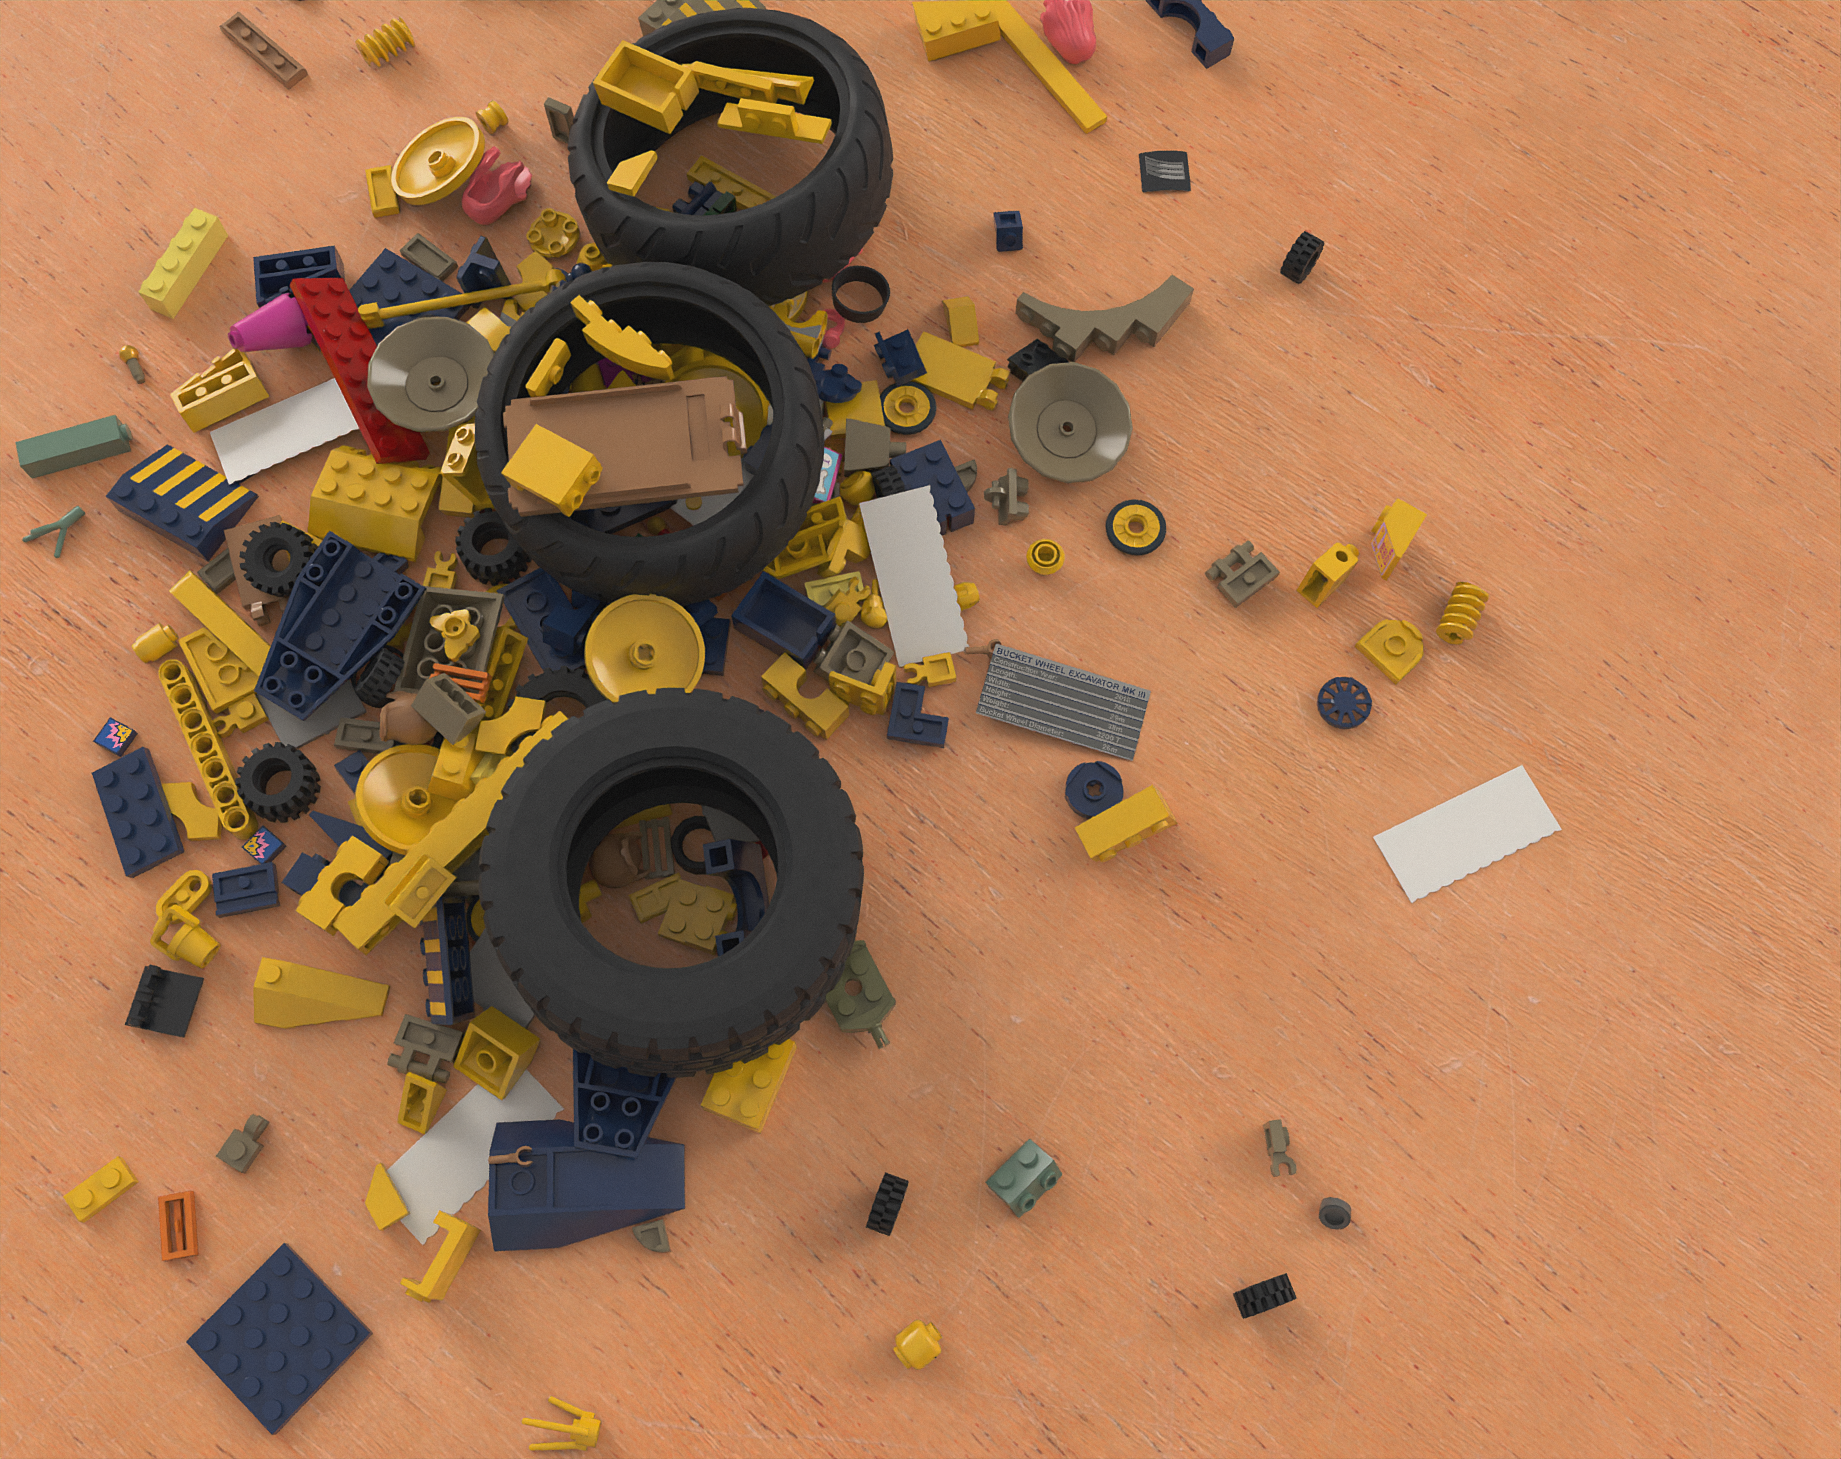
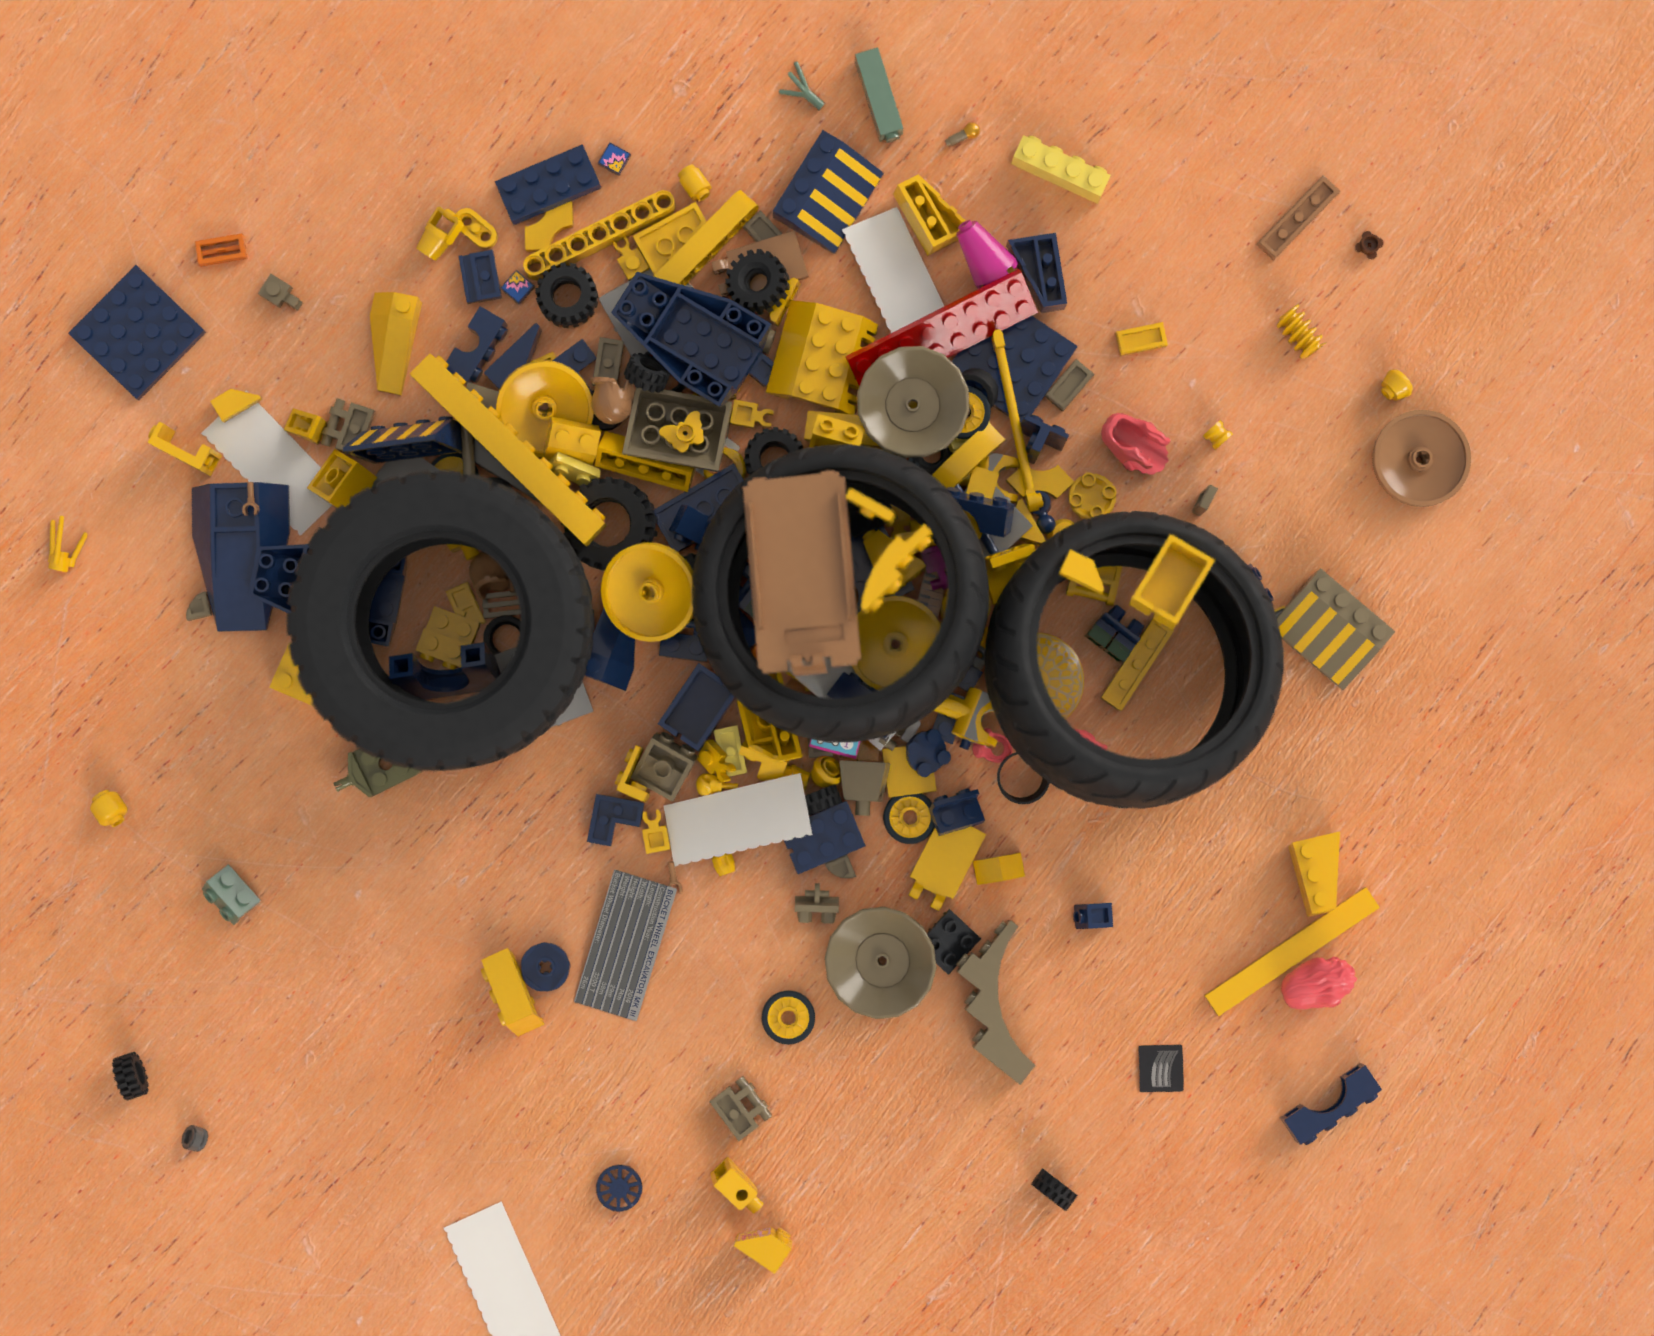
camera: 90 degrees right, 15 degrees up
(100, 1189) = (250, 189): yellow plate -> none
(164, 1001) = (392, 221): black hinge -> none
(352, 862) = (454, 341): yellow arch -> none
(419, 890) = (443, 422): yellow panel -> none
(438, 160) = (1161, 389): yellow dish -> none
(448, 708) = (610, 432): dark tan brick -> none
(466, 673) = (642, 419): orange tile -> none
(499, 734) = (593, 473): yellow tile -> none
(553, 469) = (768, 514): yellow panel -> none
(751, 84) = (1180, 674): yellow wedge -> none
(774, 121) = (1128, 702): yellow bracket -> none
(820, 714) = (616, 738): yellow arch -> none
(887, 1204) = (210, 787): black tyre -> none
(1045, 557) = (747, 933): yellow cone -> none
(1277, 1139) = (251, 1097): dark tan plate -> none
(1393, 648) = (669, 1236): yellow tile -> none
(1462, 613) = (696, 1300): yellow piece -> none

